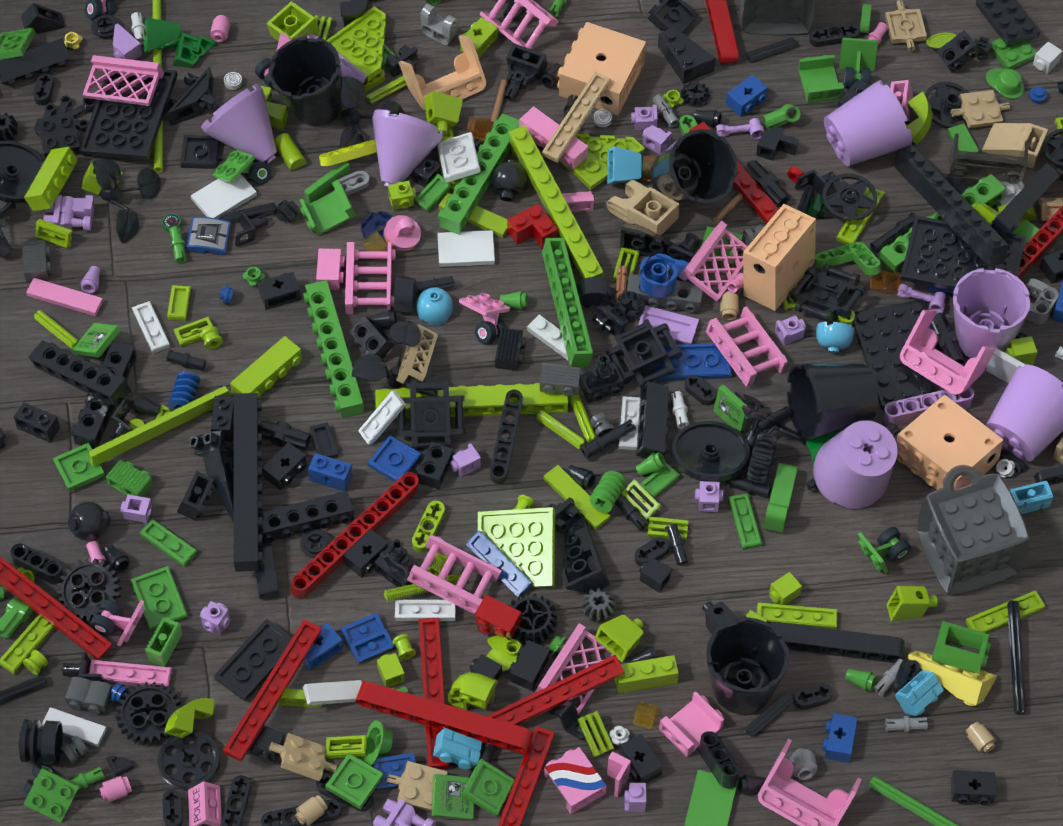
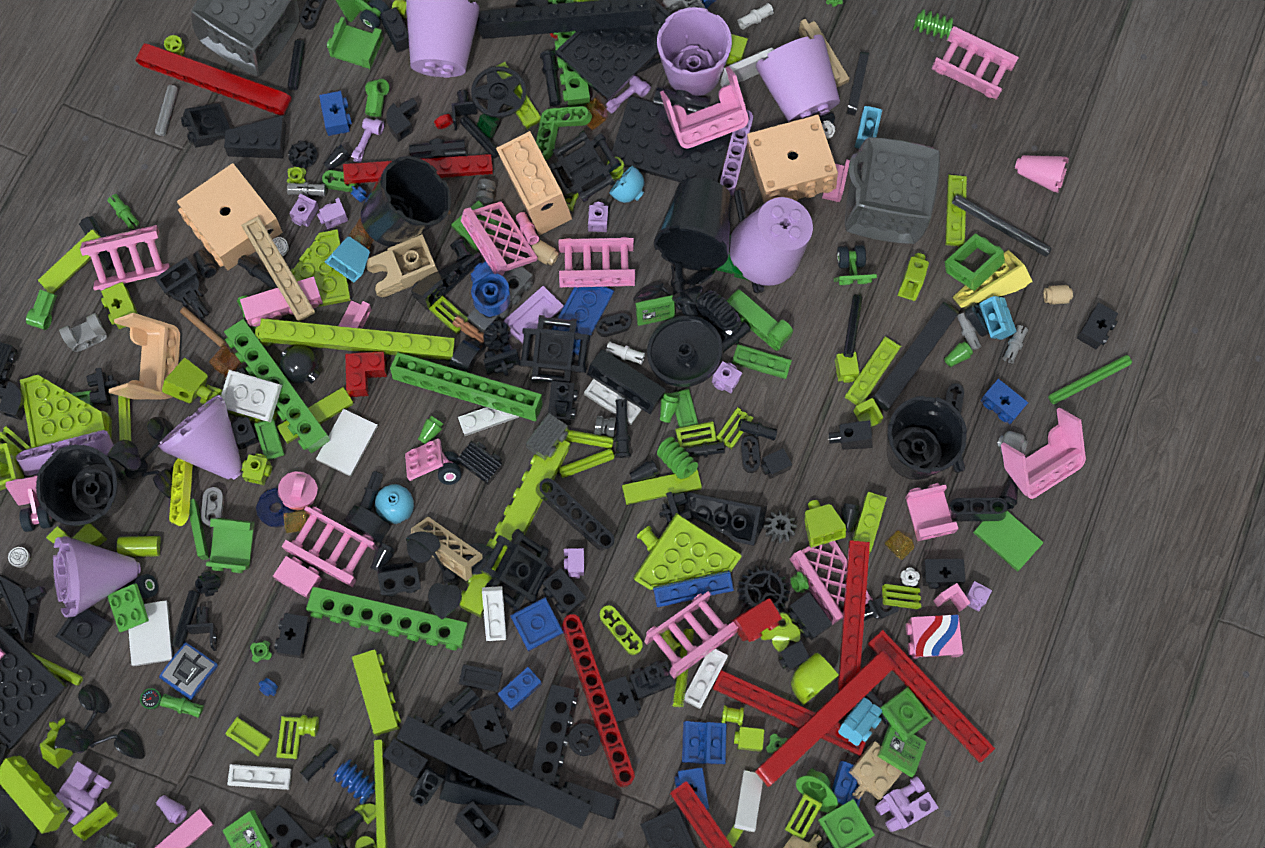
camera: 65 degrees left, 15 degrees up
(826, 574) = (852, 326): none -> black axle

